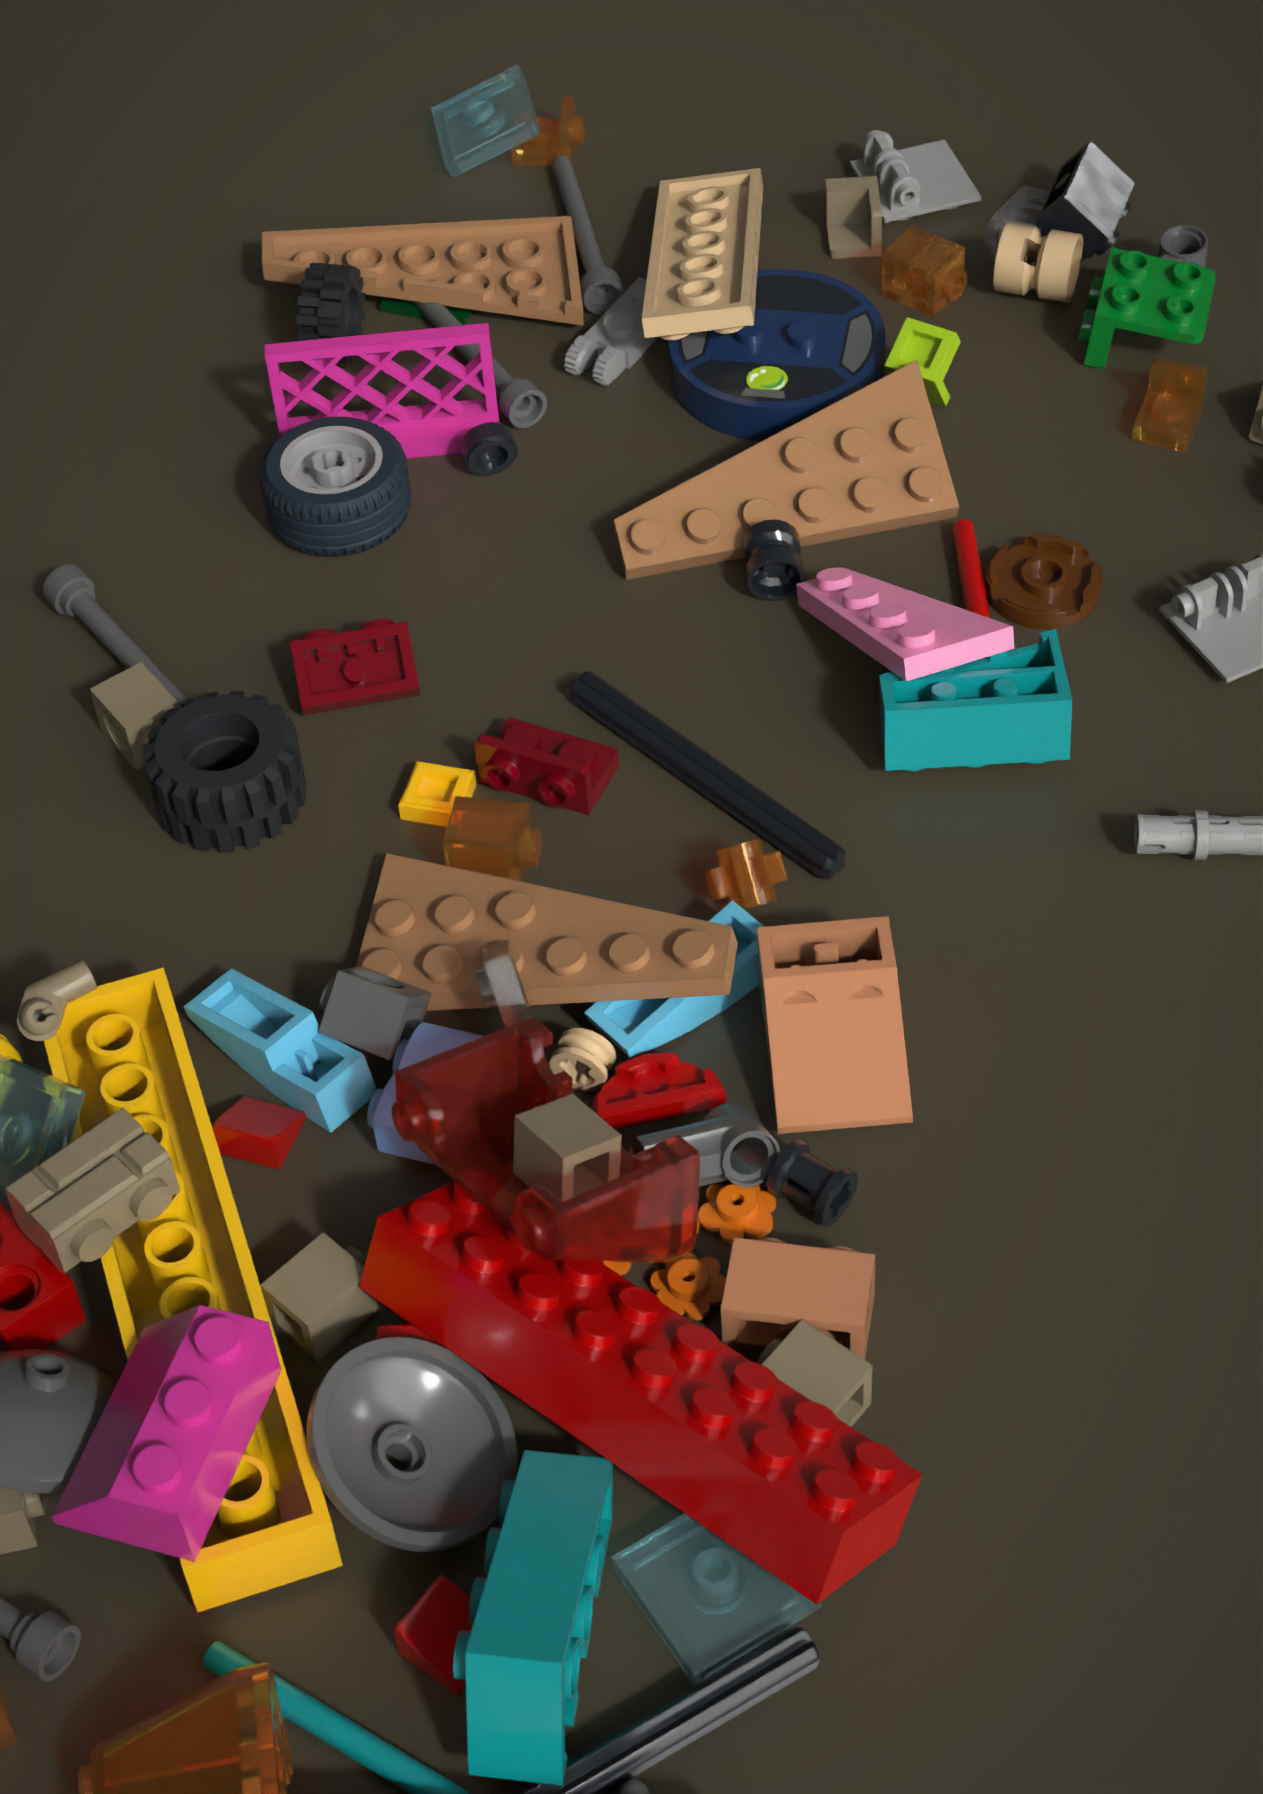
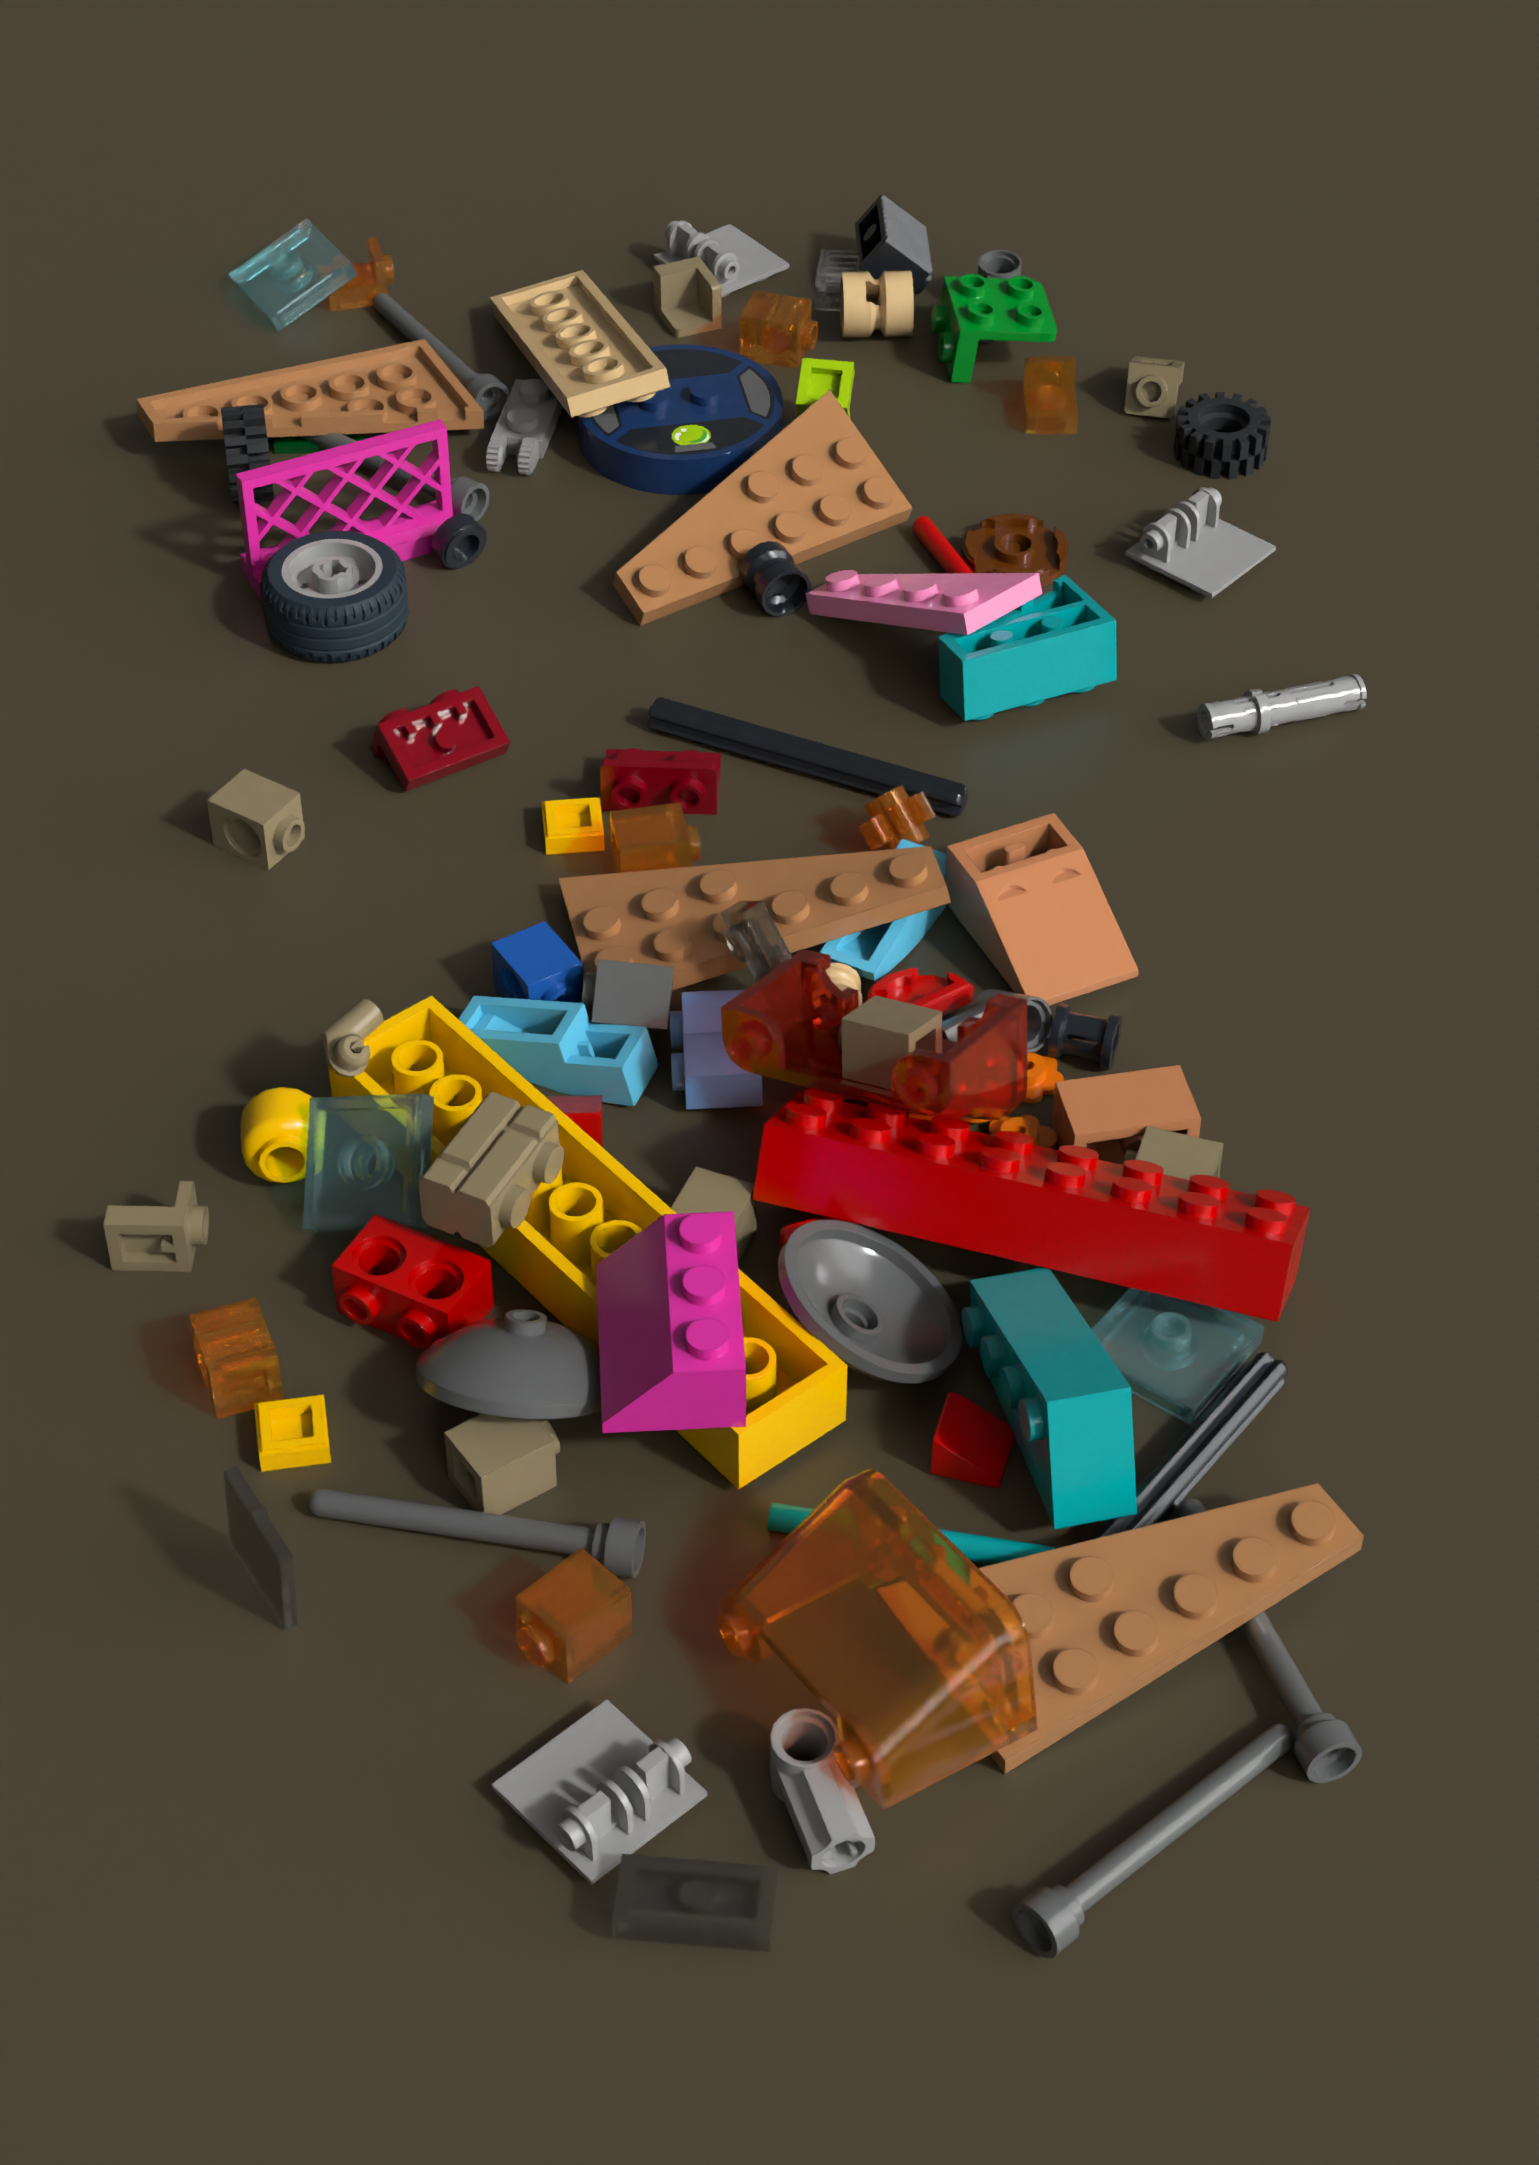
camera: 25 degrees left, 5 degrees down
(73, 594) = (123, 736): dark grey piece -> none
(225, 771) = (373, 842): black tyre -> none
(302, 954) = (536, 966): none -> blue brick

